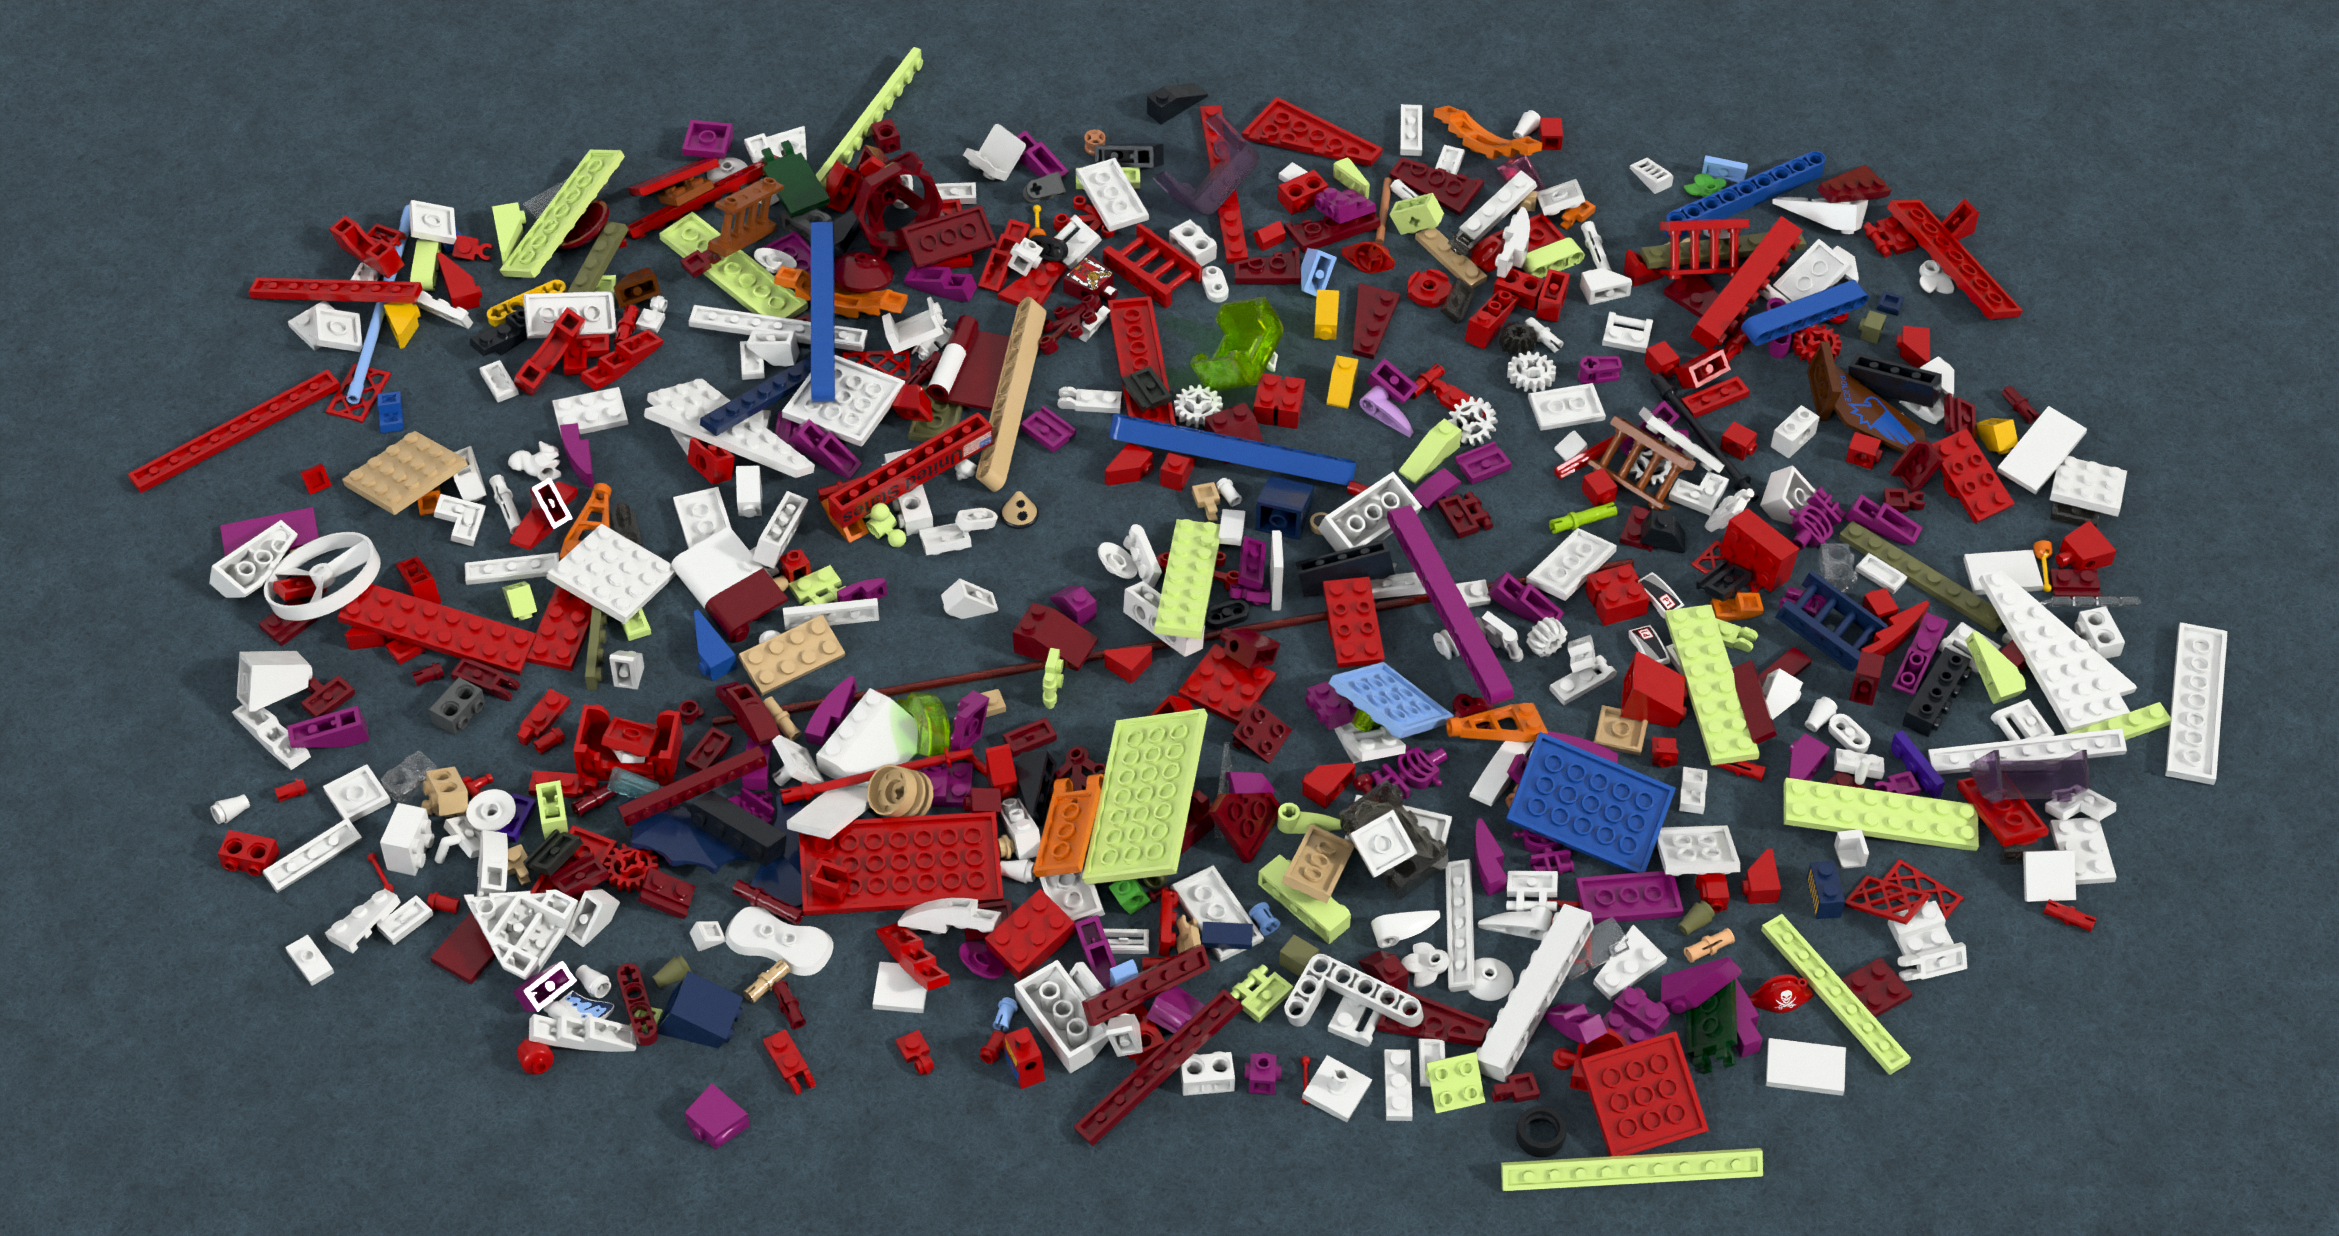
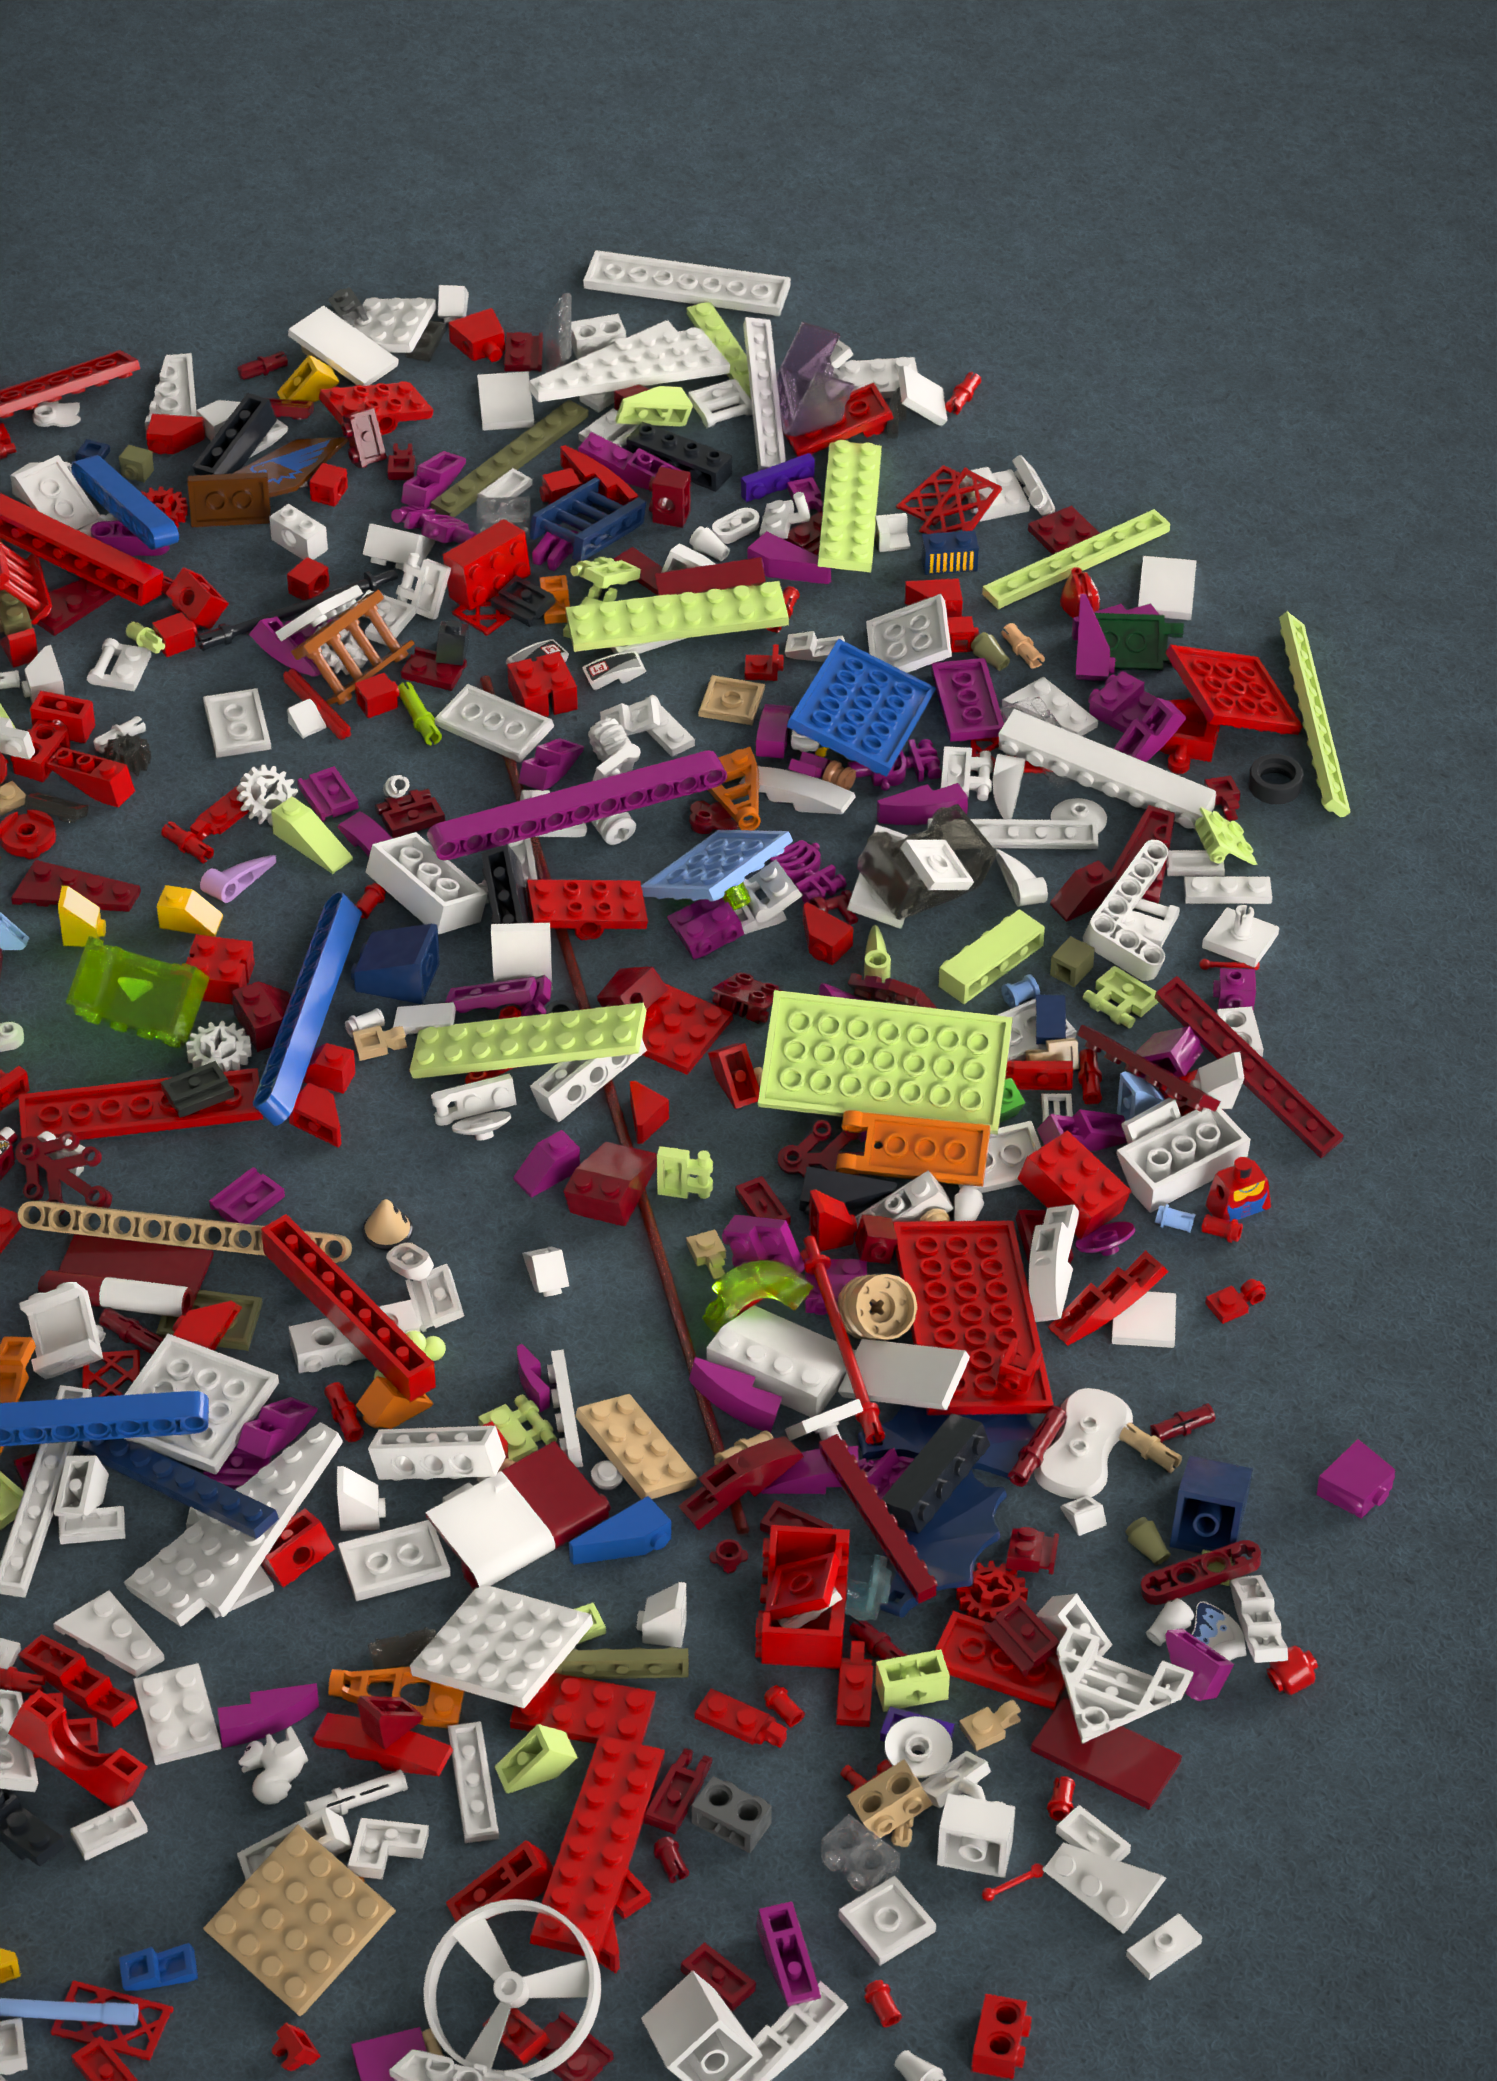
camera: 90 degrees left, 5 degrees down
(312, 855) = (996, 1958): white plate -> none
(492, 863) = (1013, 1729): white slope -> none
(553, 852) = (986, 1668): pearl dark grey plate -> none
(662, 373) = (113, 1633): none -> white wing
(788, 1060) = (1262, 1420): red hinge -> none
(1090, 400) = (195, 1157): white hinge -> none
(1318, 863) = (952, 933): tan plate -> none
(1393, 381) = (192, 862): magenta slope -> none
(1422, 963) = (1062, 863): white plate -> none
(1481, 497) = (401, 783): none -> white pin
(1529, 372) = (183, 744): white gear -> none
(1600, 368) = (184, 688): magenta piece -> none
(1653, 340) = (145, 637): none -> yellowish green axle
(1653, 692) = (692, 664): red slope -> none
(1716, 397) = (241, 603): red plate -> none
(1767, 636) = (606, 572): none -> yellowish green plate
(1973, 349) = (175, 389): none -> white wing
(2043, 551) = (480, 366): hinge -> none
(2103, 455) = (348, 306): none -> dark grey hinge
(2129, 528) = (452, 302): none -> white slope

